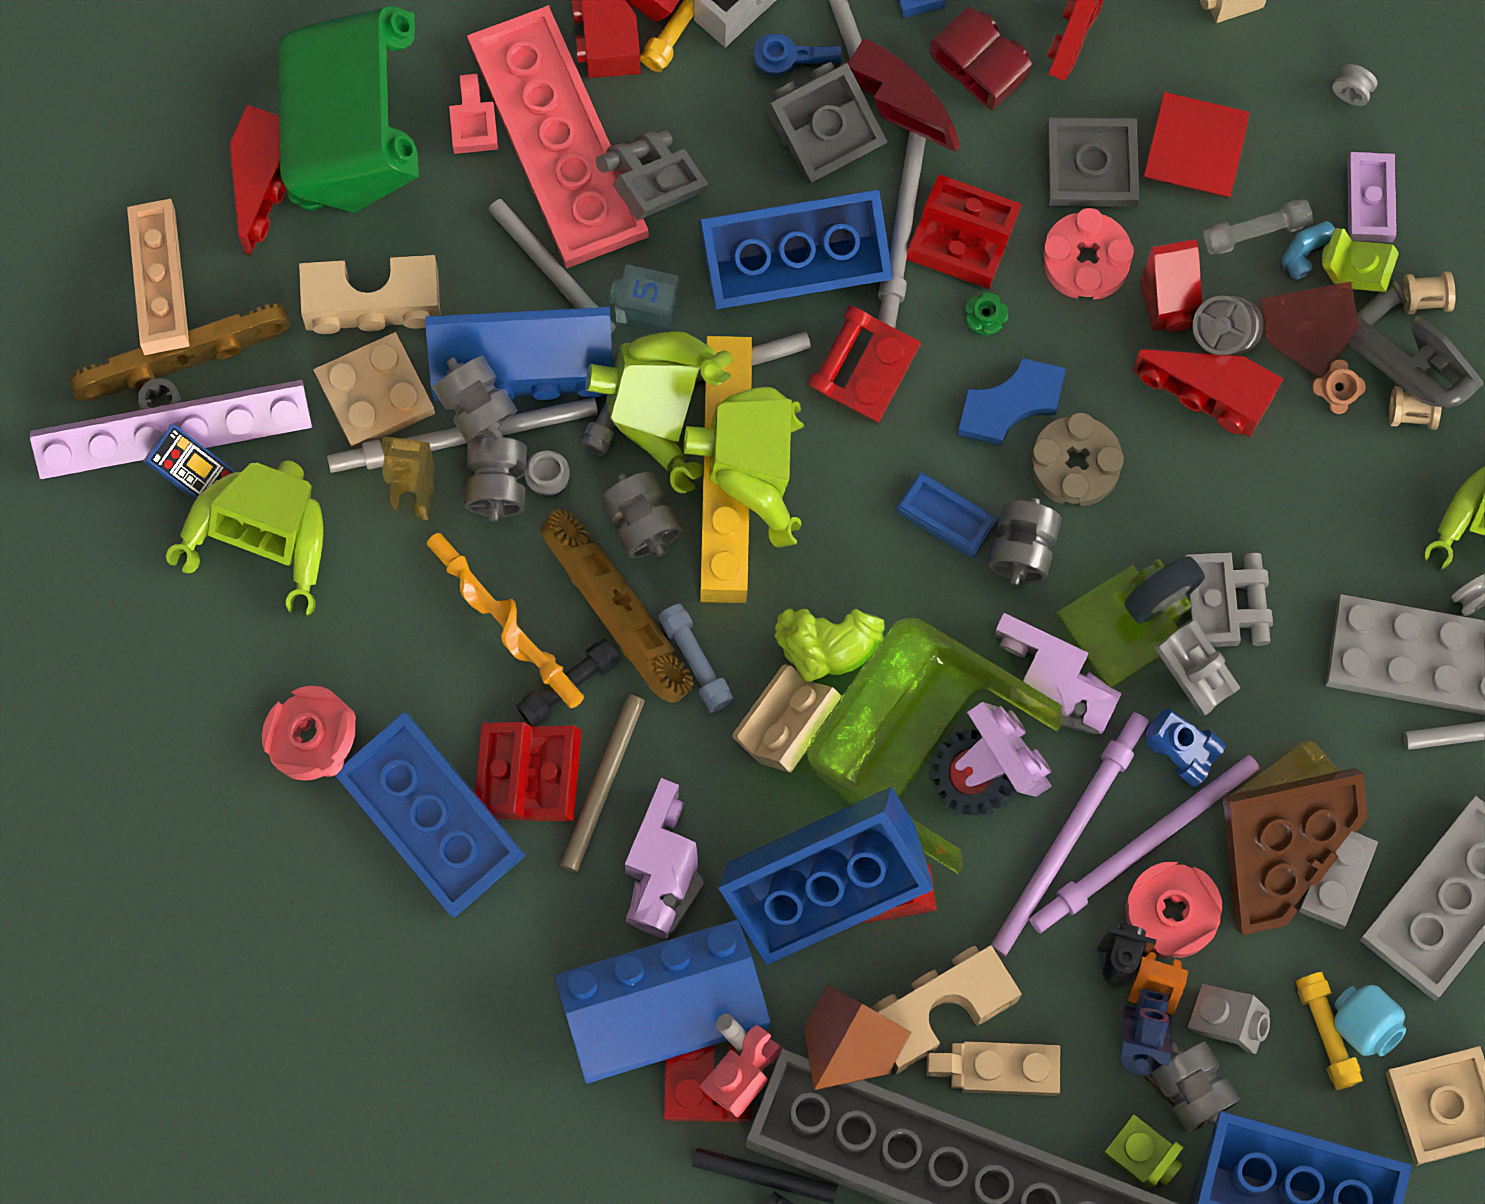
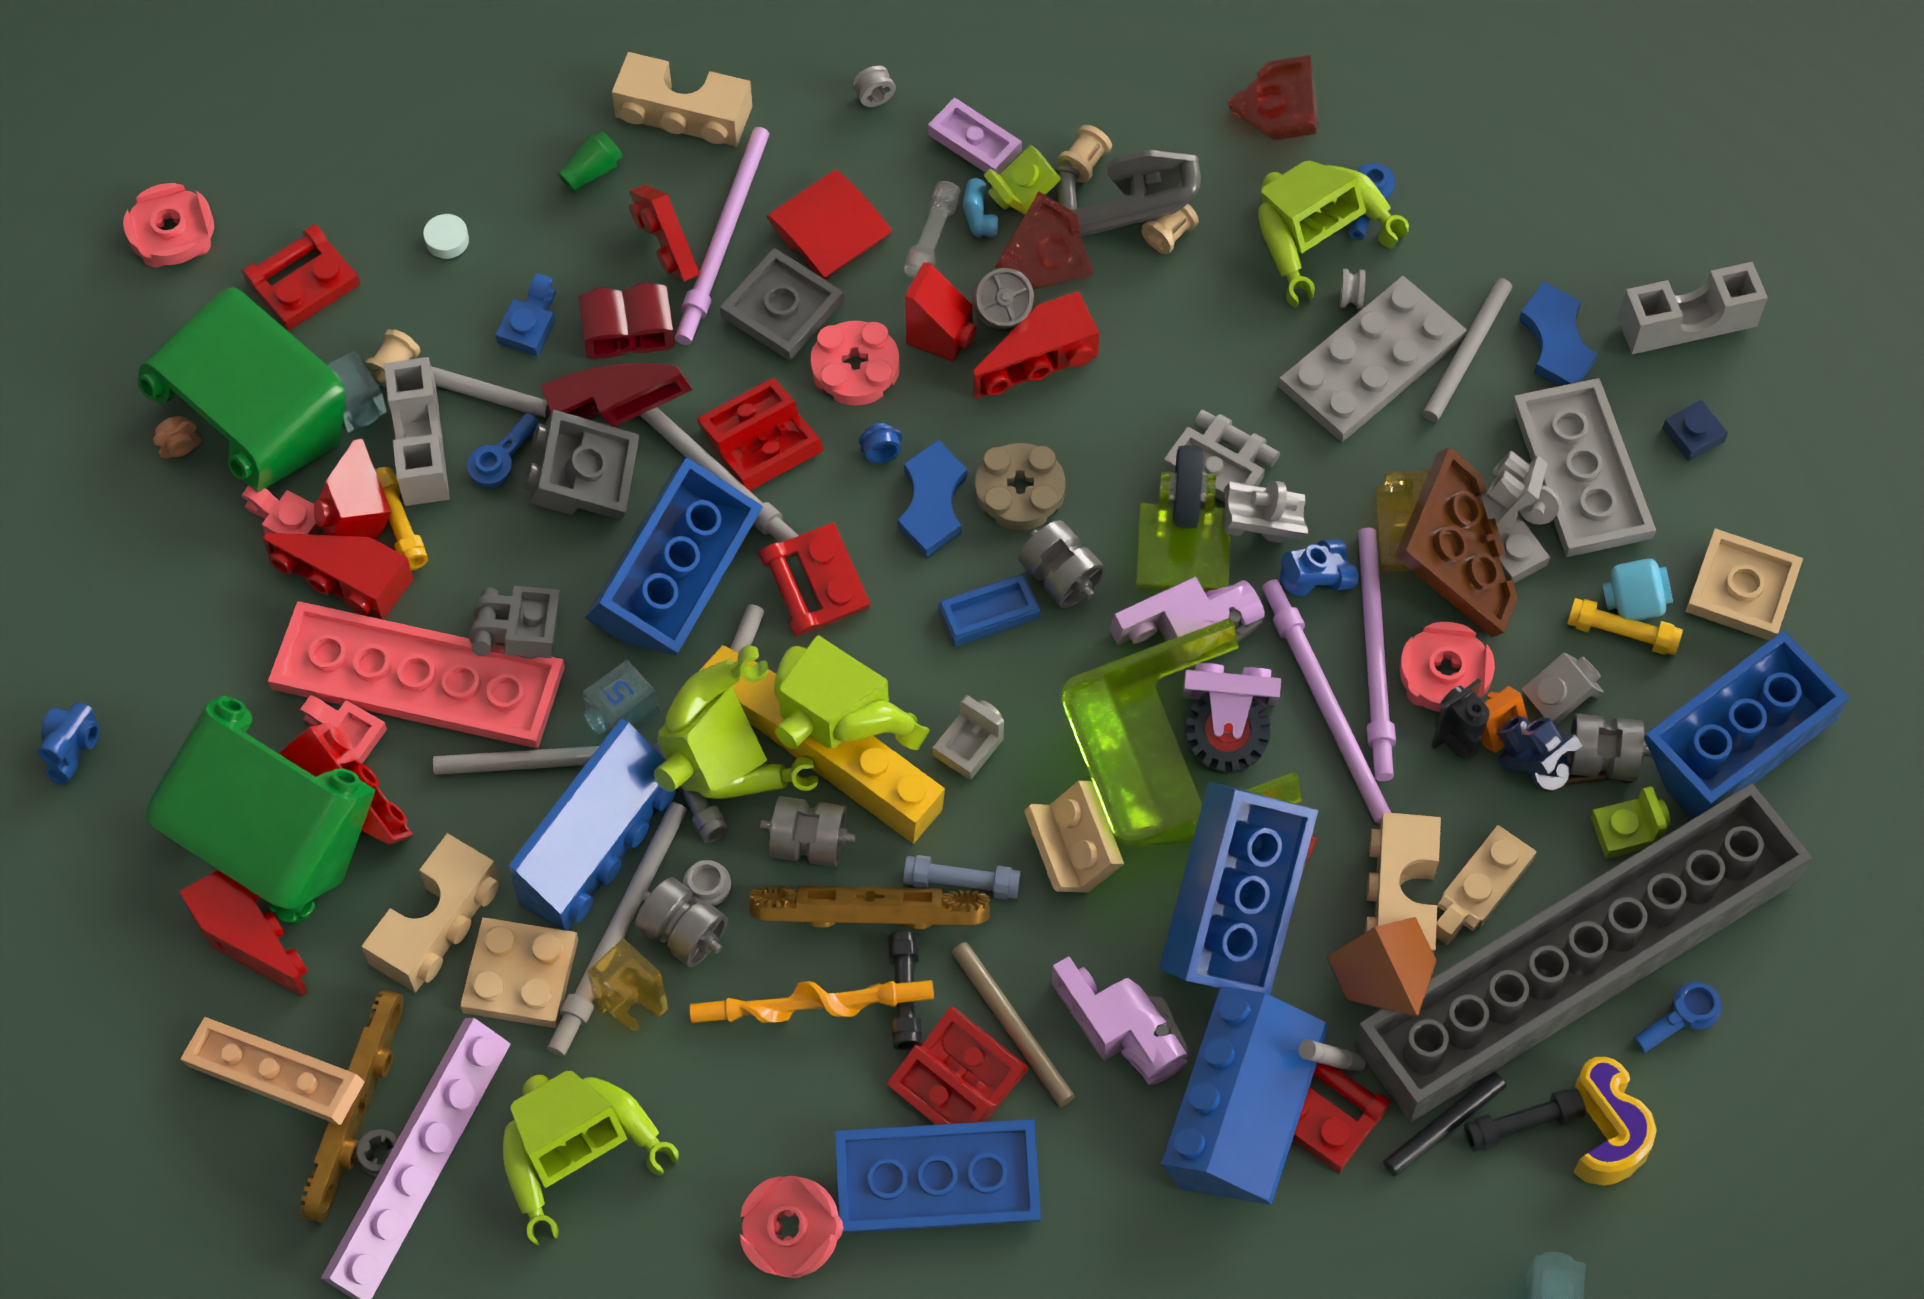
camera: 50 degrees left, 10 degrees down
(185, 462) = (464, 1163): tile -> none
(432, 125) = (328, 748): none -> red slope
(476, 401) = (609, 880): flat silver wheel -> none
(740, 1078) = (1358, 1077): coral plate -> none
(816, 580) = (971, 737): none -> light grey bracket
(826, 647) = (1033, 767): lime hair -> none
(986, 324) = (844, 475): green plate -> none
(1027, 326) = (880, 443): none -> blue plate
(1044, 97) = (698, 300): none -> lavender bar
(1352, 386) = (1116, 256): nougat plate -> none
(1380, 859) = (1520, 488): none -> light grey hips

